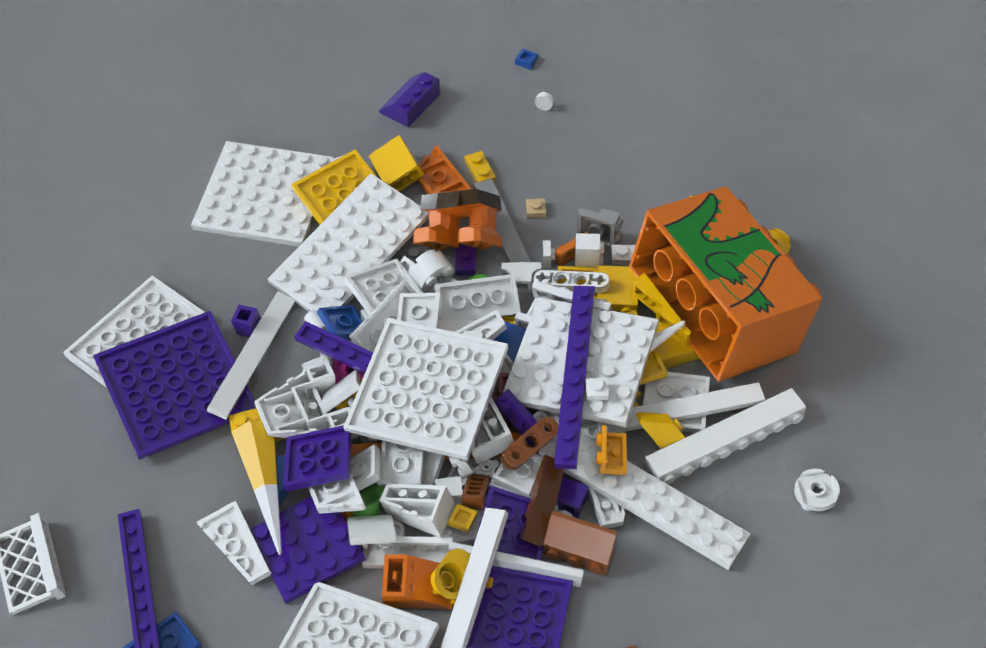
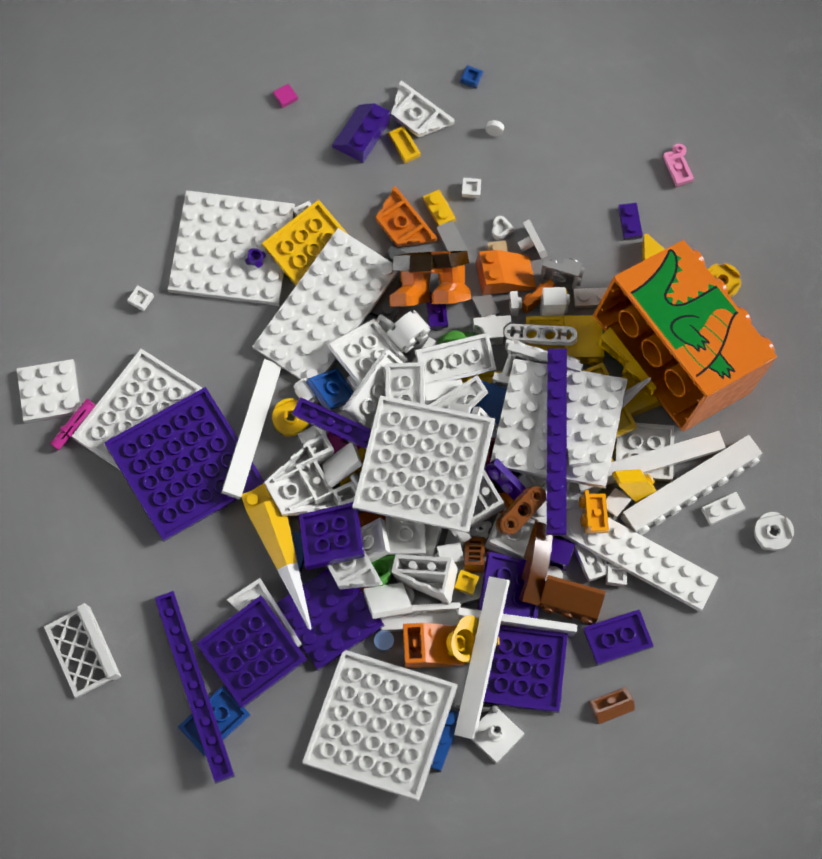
camera: 10 degrees left, 15 degrees up
(50, 311) = (48, 391): none -> white plate
(64, 343) = (86, 406): none -> dark pink pin
(161, 232) = (140, 298): none -> white plate
(212, 576) = (251, 651): none -> dark purple plate
(245, 320) = (240, 393): dark purple brick -> none
(283, 198) = (255, 253): none -> dark purple plate
(291, 357) = (280, 415): none -> yellow plate
(339, 67) = (285, 95): none -> dark pink tile
(364, 576) = (384, 641): none -> light blue tile
(396, 164) = (359, 212): yellow brick -> none
(451, 112) = (404, 144): none -> yellow tile
(469, 86) = (418, 113): none -> white wing
(514, 151) = (471, 188): none -> white plate
(538, 222) = (504, 272): none -> orange slope
(542, 188) = (501, 228): none -> white tile
(571, 199) = (532, 240): none -> white tile
(631, 589) = (618, 637): none -> dark purple plate
(633, 525) = (616, 576): none -> white plate
(639, 448) = (617, 503): none -> white brick
(676, 186) = (630, 221): none -> dark purple plate
(730, 141) = (677, 165): none -> bright pink hinge
(760, 464) = (723, 508): none -> white plate

